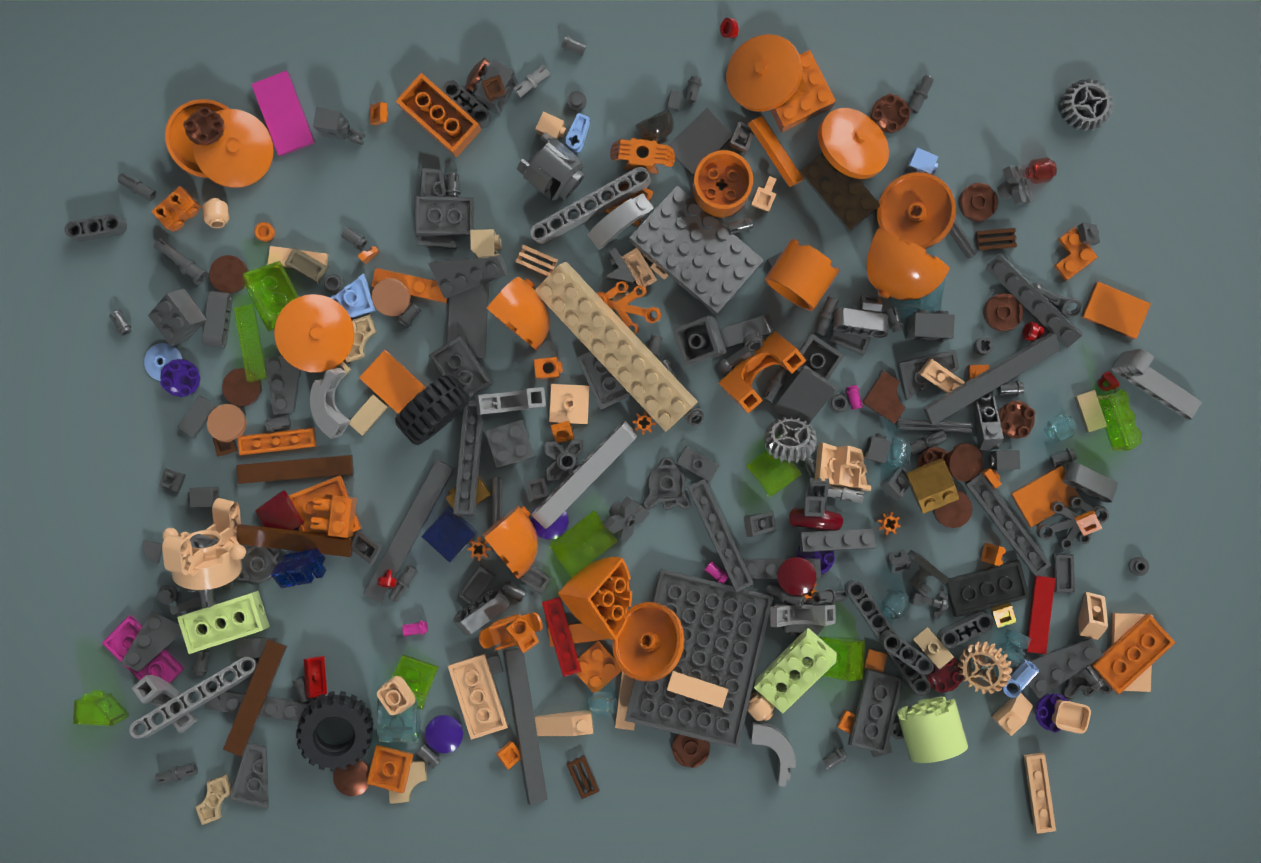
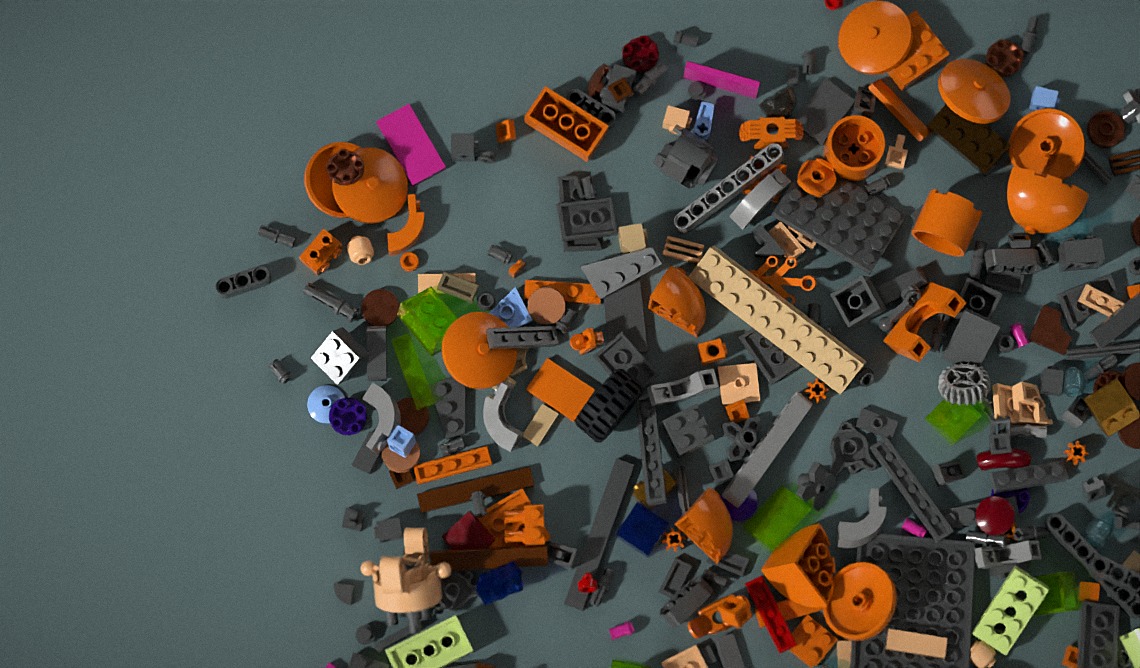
camera: 10 degrees left, 10 degrees down
(216, 385) = (388, 416): none -> light grey arch
(223, 413) = (401, 441): none -> light blue brick
(270, 201) = (406, 237): none -> orange arch
(293, 485) = (479, 503): none -> dark grey pin
(358, 326) = (522, 337): none -> dark grey plate
(422, 339) = (586, 340): none -> orange hips
(526, 54) = (640, 54): none -> dark red dish
(601, 92) = (721, 79): none -> dark pink tile
(664, 571) = (859, 533): none -> light grey arch
(678, 218) = (812, 186): none -> orange plate

